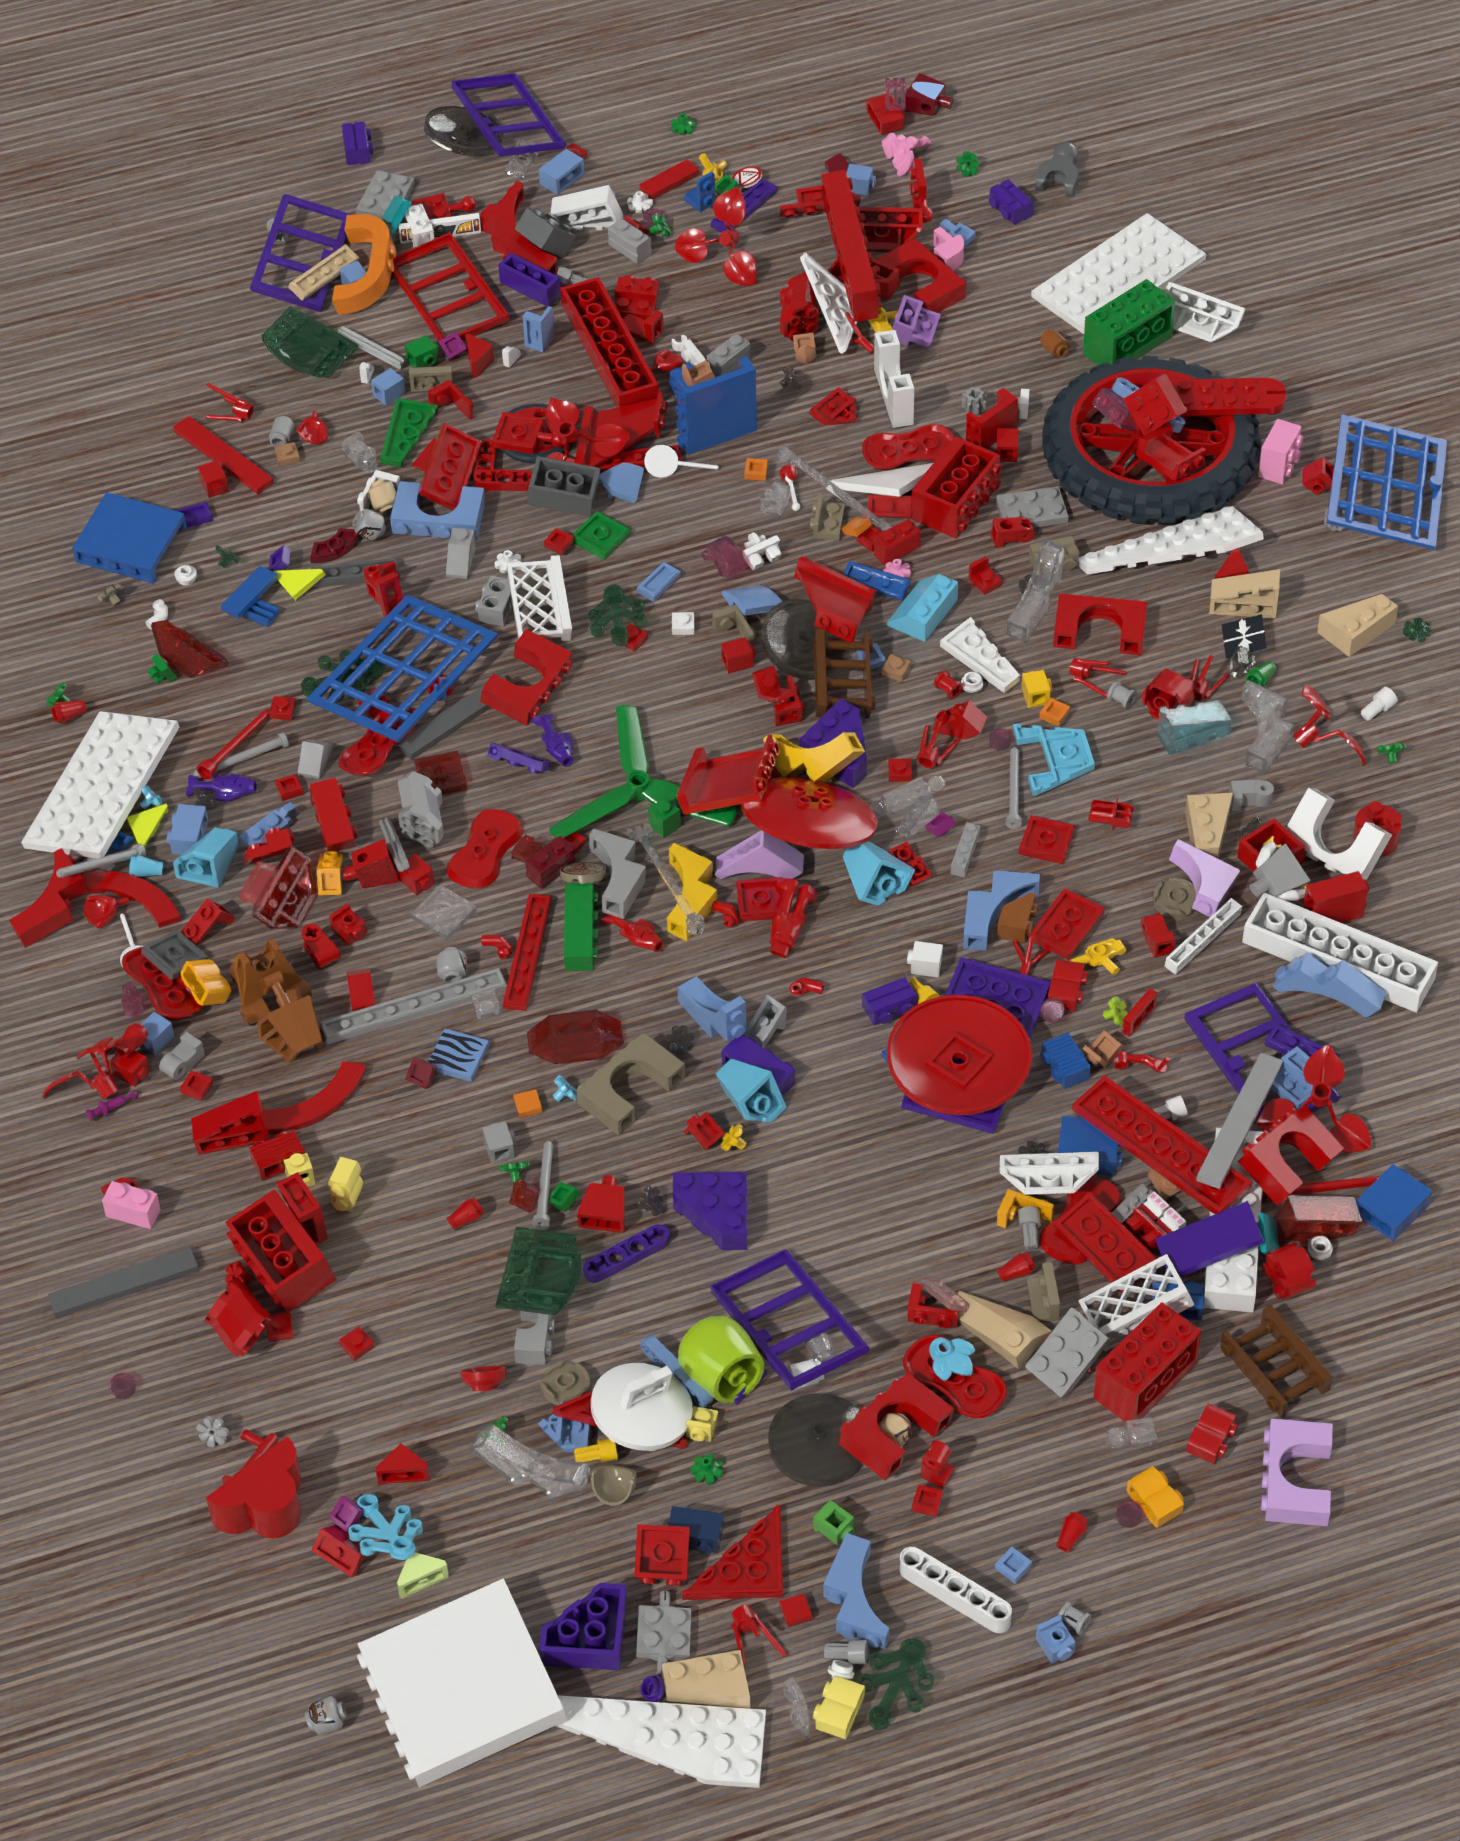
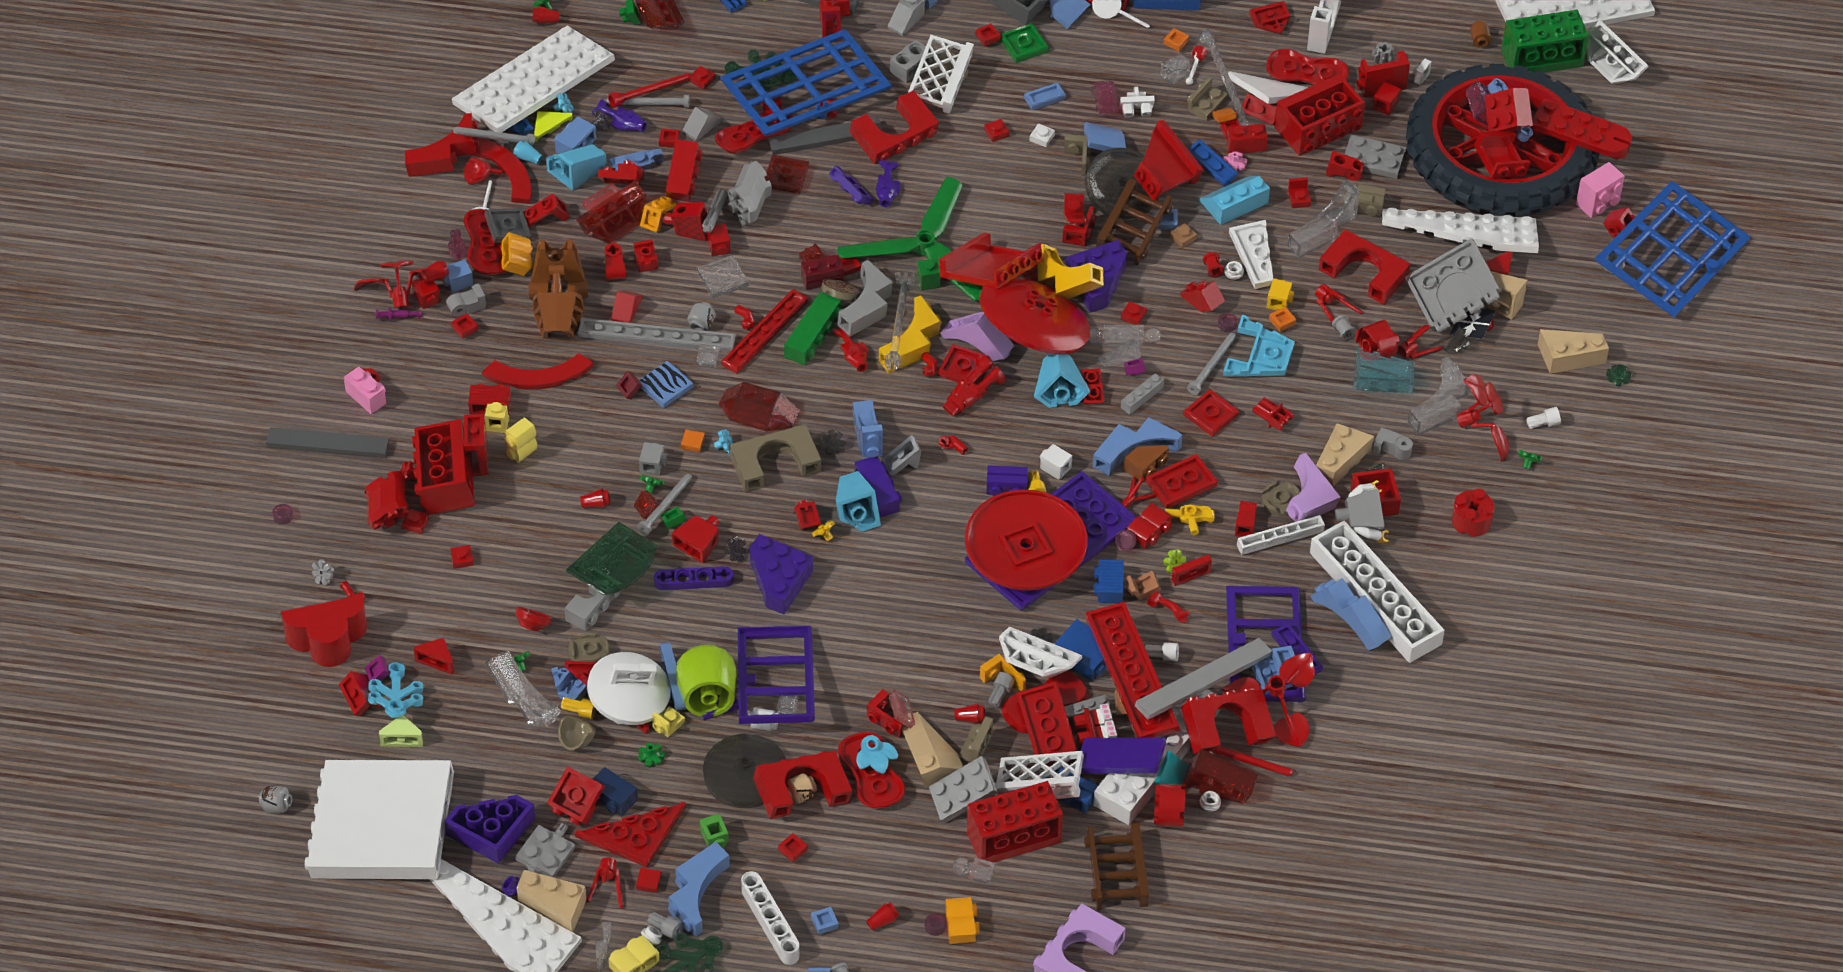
camera: 25 degrees right, 0 degrees up
(231, 1125) = (468, 363): red wedge -> none
(480, 859) = (774, 249): red plate -> none
(506, 557) = (942, 32): white plant -> none
(613, 596) = (1001, 93): clear green plant -> none
(737, 655) = (1066, 175): red brick -> none
(929, 755) = (1163, 310): red plant -> none
(935, 1464) = (814, 825): red leg -> none
(1206, 606) = (1453, 285): none -> light grey hinge
(1212, 1433) = (1033, 895): red brick -> none
(1261, 673) = (1466, 357): green cone -> none
(1307, 825) = (1413, 493): white arch -> none
(1338, 897) = (1401, 550): red brick -> none
(1393, 1202) = (1289, 792): blue brick -> none

